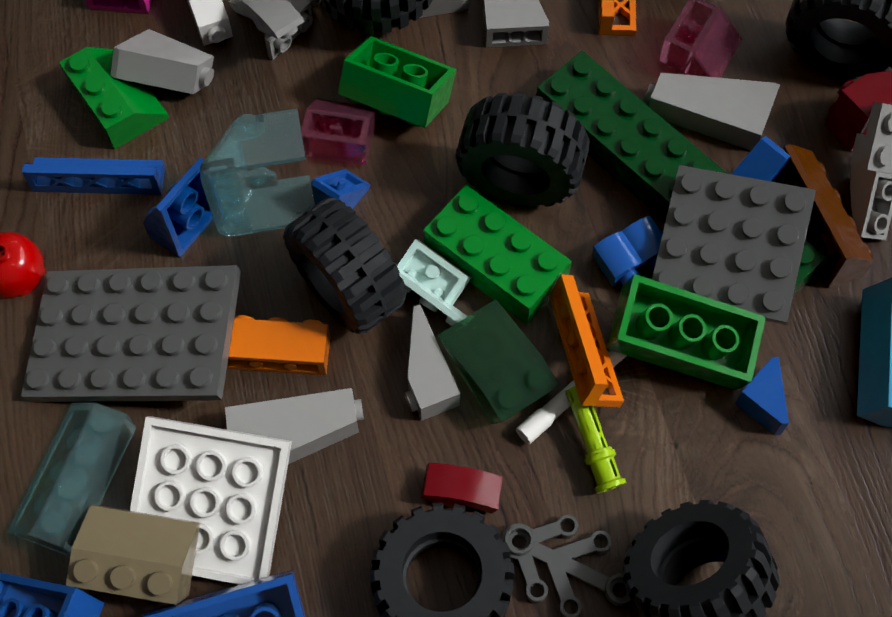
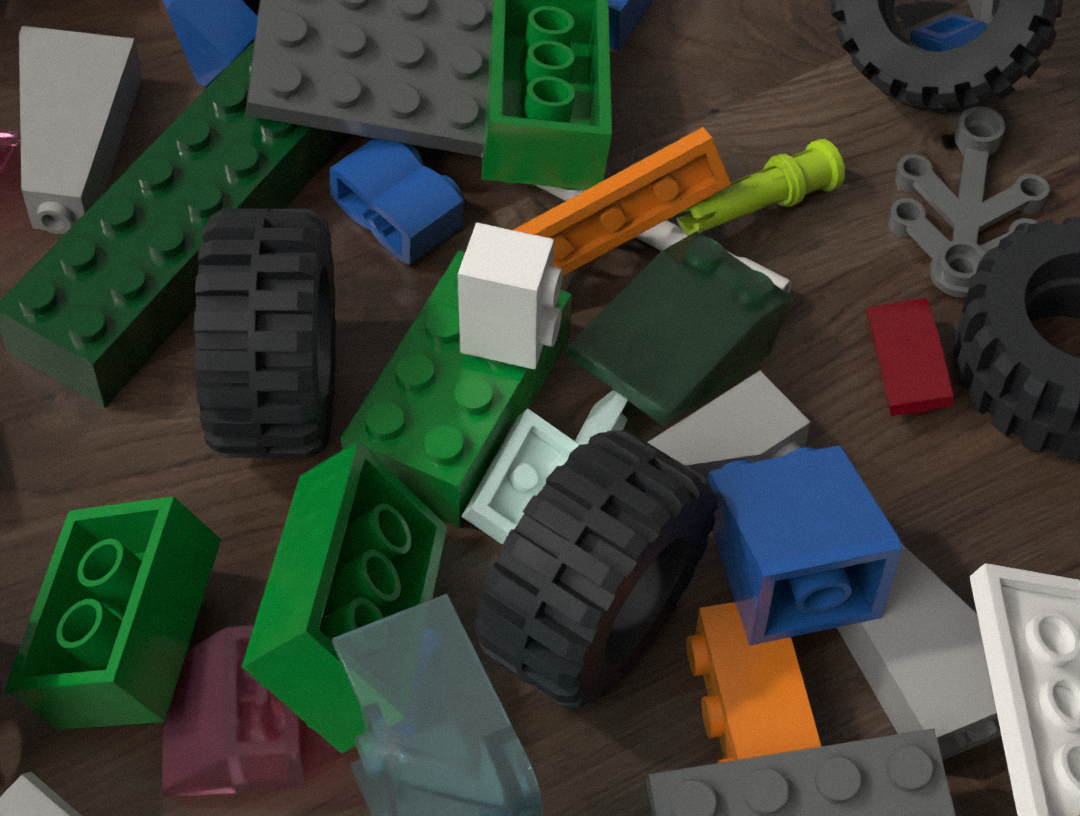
camera: 105 degrees left, 10 degrees down
(337, 363) = (802, 543): none -> blue slope
(368, 164) = (346, 558): none -> green brick
(505, 251) = (508, 296): none -> white brick

